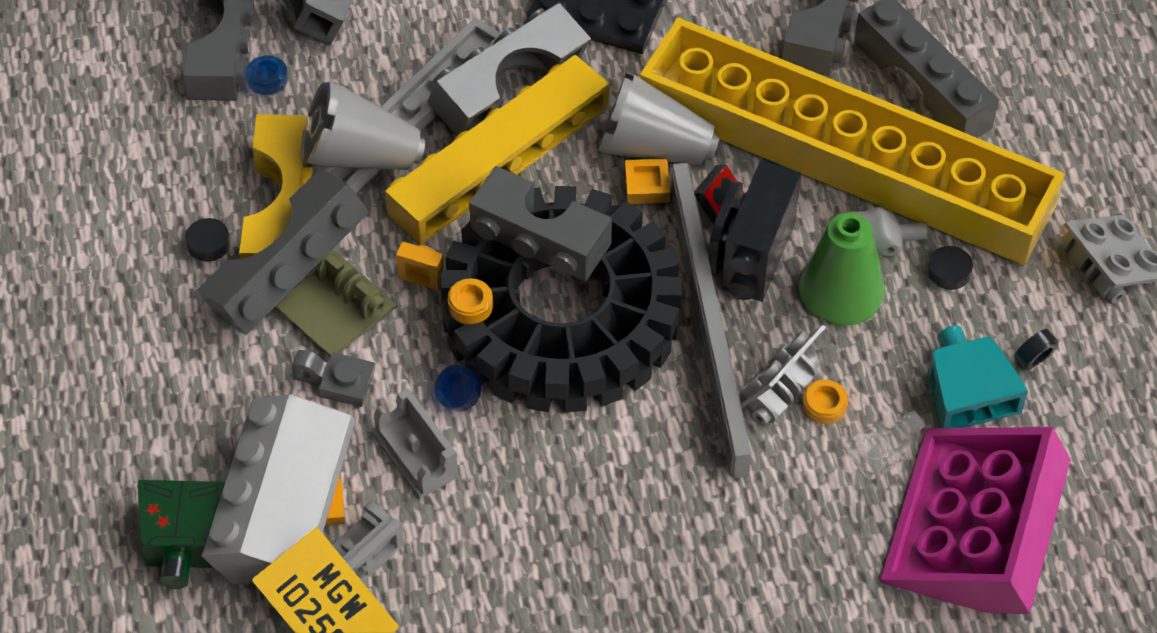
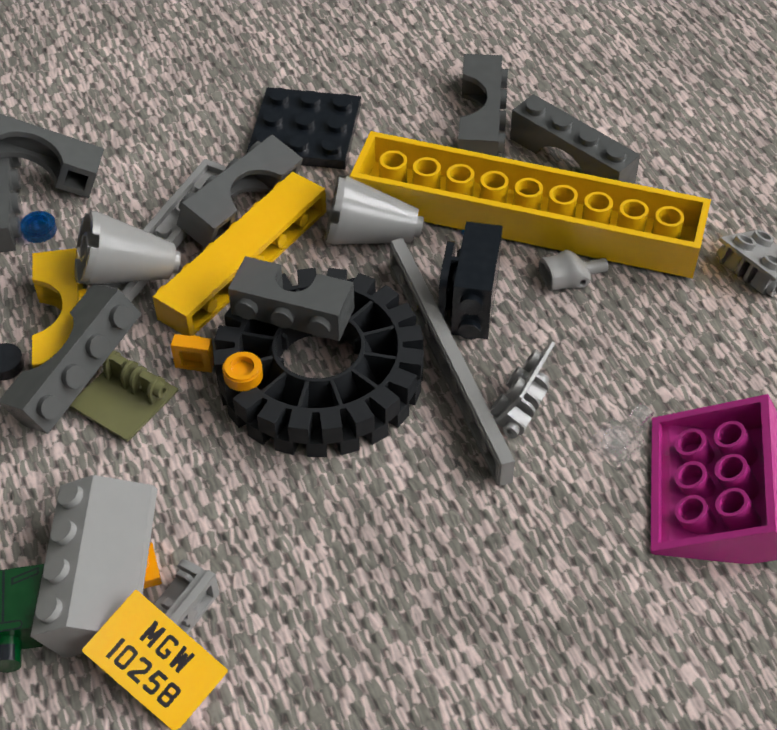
camera: 10 degrees left, 5 degrees down
(340, 379) = (137, 458): dark grey plate -> none
(415, 445) = (215, 503): light grey hinge -> none
(458, 387) = (244, 448): clear blue tile -> none
(647, 181) = (371, 259): light orange plate -> none
(714, 190) = (430, 259): black tile -> none
(825, 401) = (561, 409): light orange tile -> none
(843, 273) = (552, 301): bright green cone -> none
(950, 267) = (634, 289): black tile -> none
(972, 381) = (681, 372): teal torso -> none
(1036, 349) = (725, 339): black tile -> none

